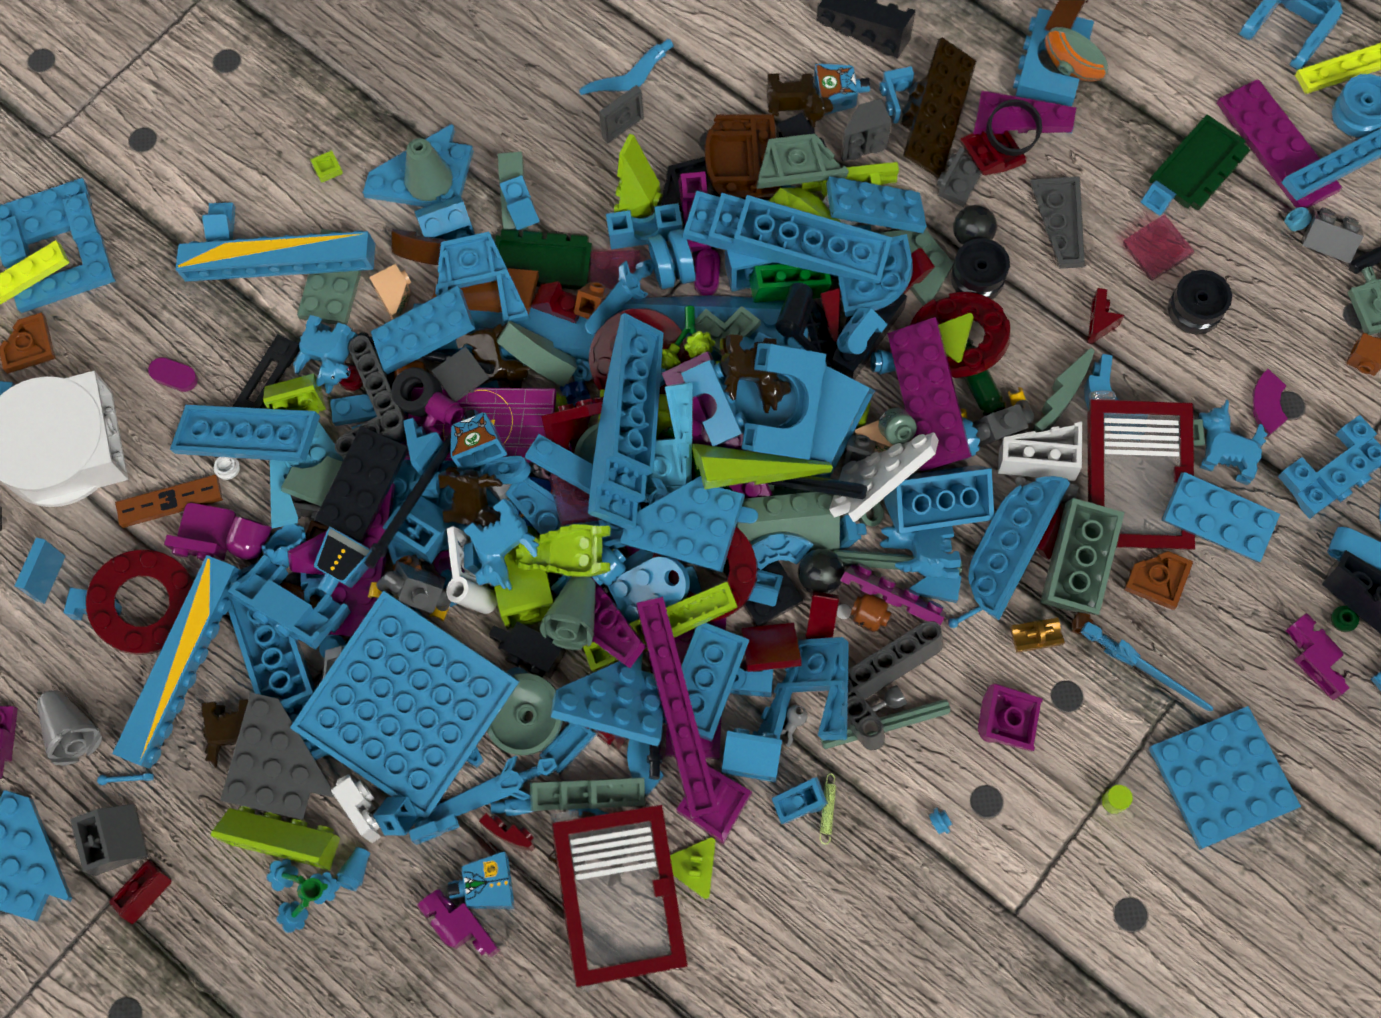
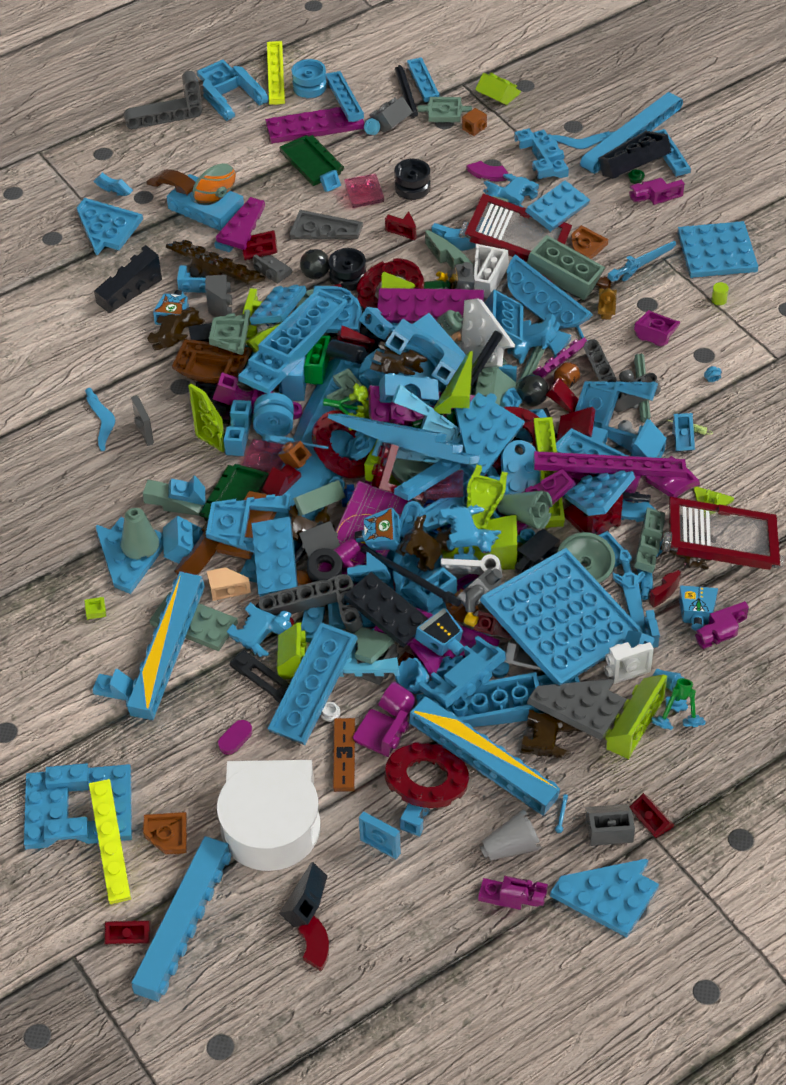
camera: 75 degrees left, 20 degrees down
(1031, 110) = (254, 237): black tyre -> none

